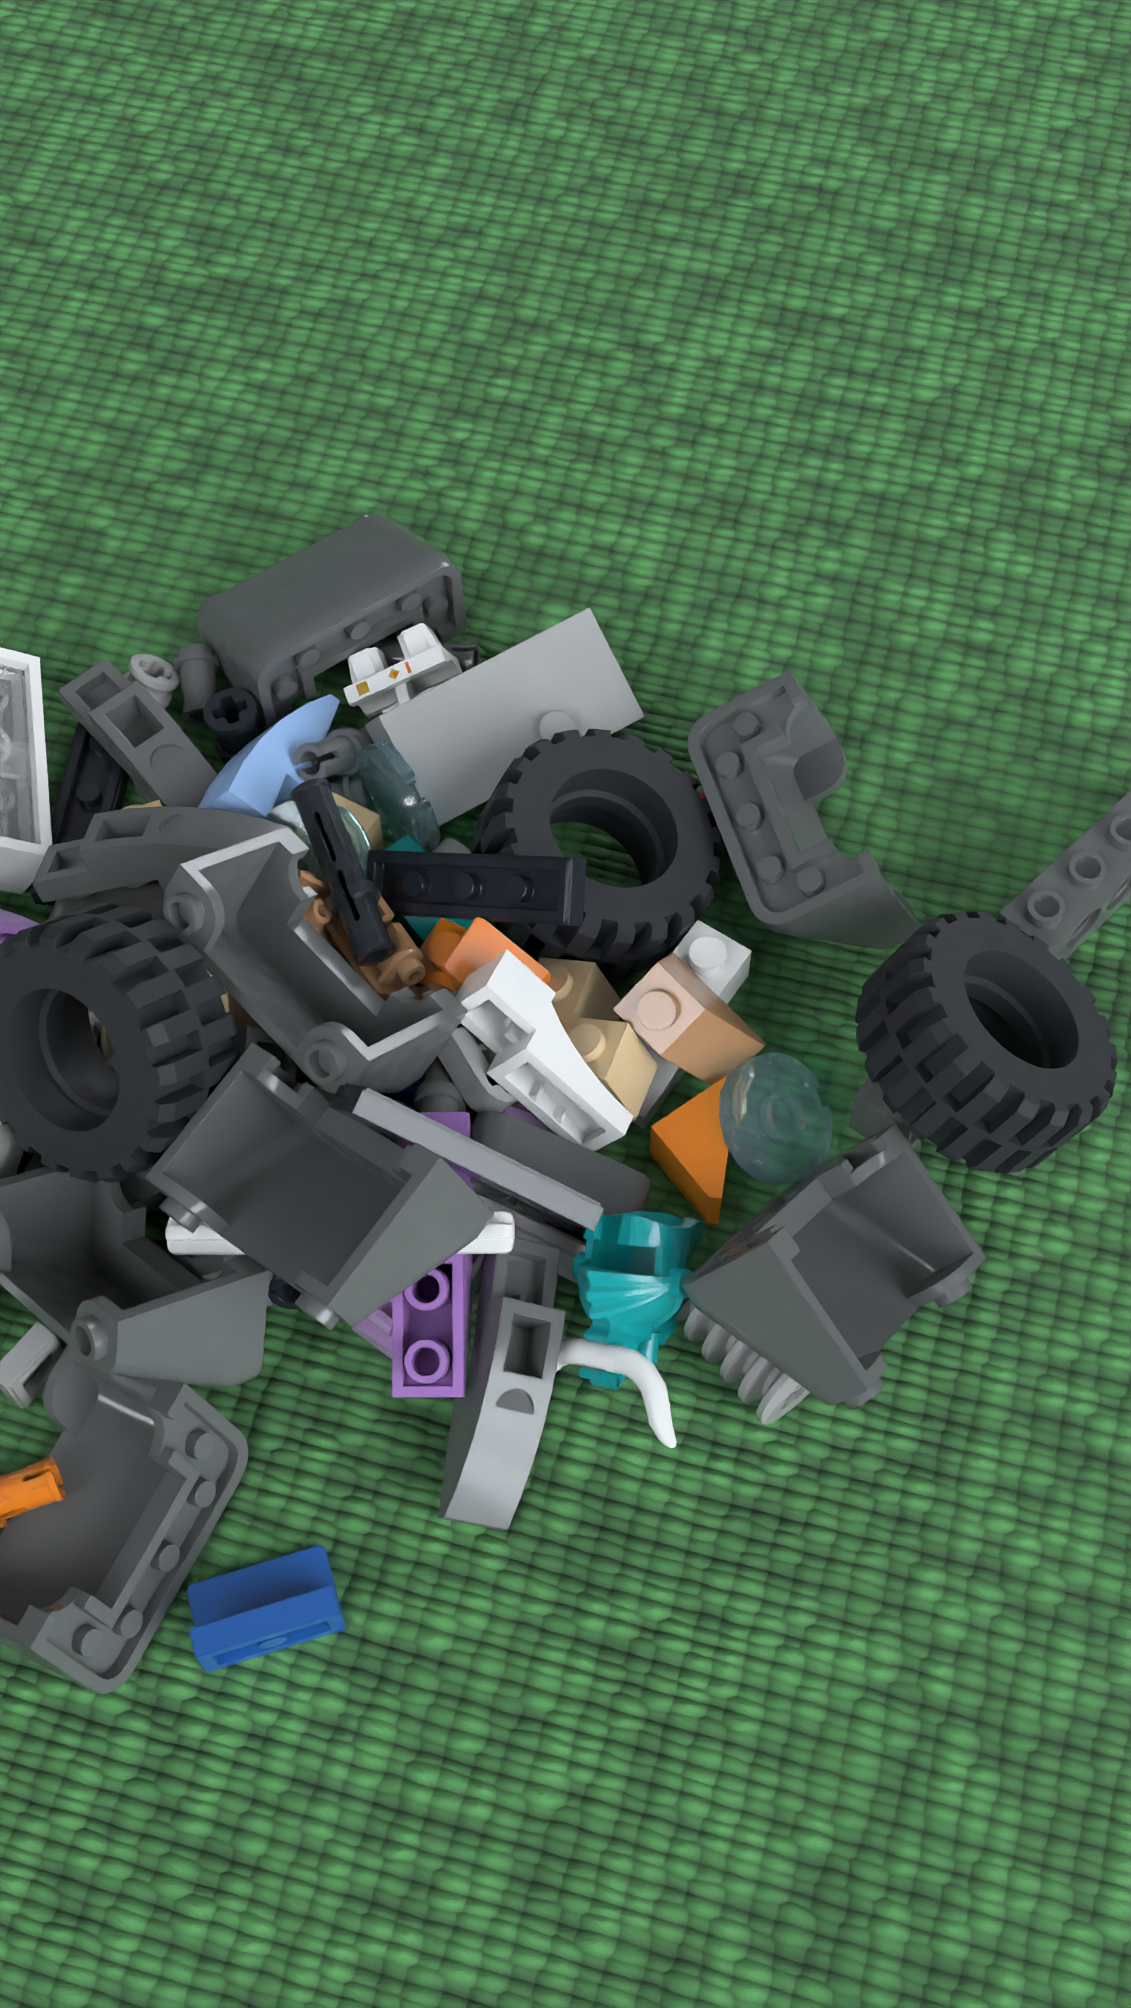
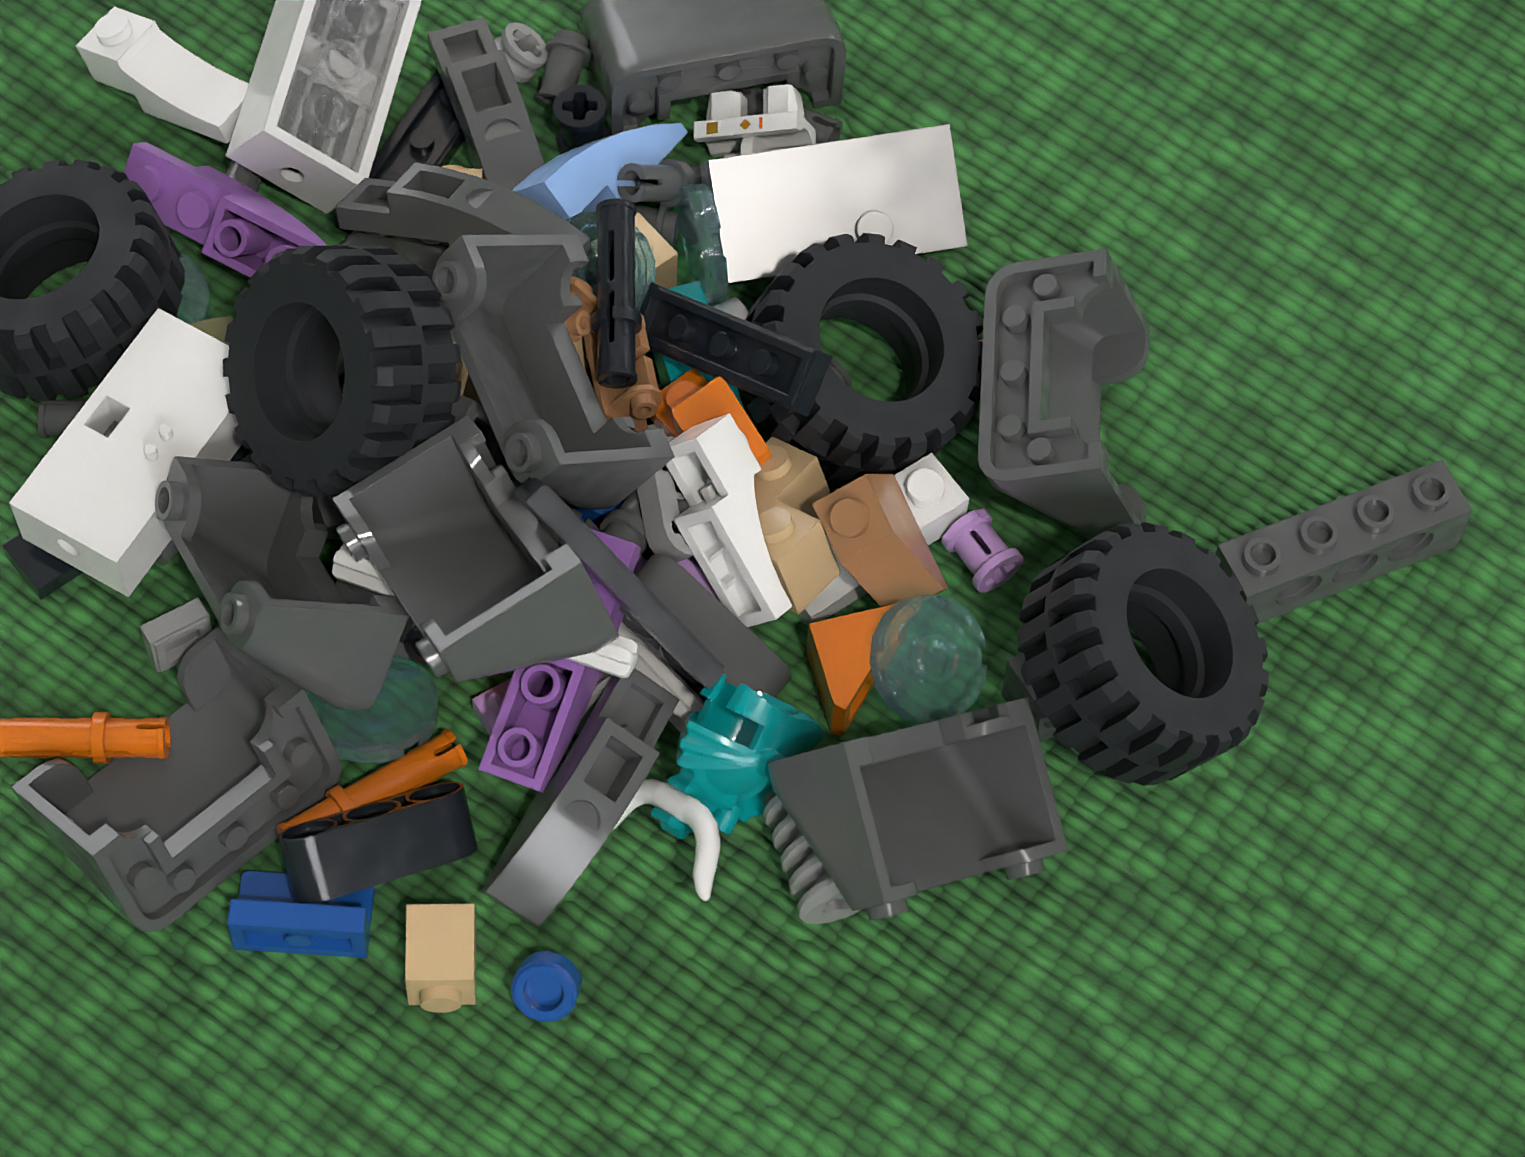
camera: 15 degrees right, 0 degrees up
(270, 1480) = (402, 775): none -> orange pin
(288, 1375) = (397, 720): none -> clear light blue tile
(315, 1509) = (378, 842): none -> black beam
(425, 1602) = (440, 956): none -> tan brick
(542, 1592) = (546, 986): none -> blue tile
(776, 995) = (982, 550): none -> lavender bush

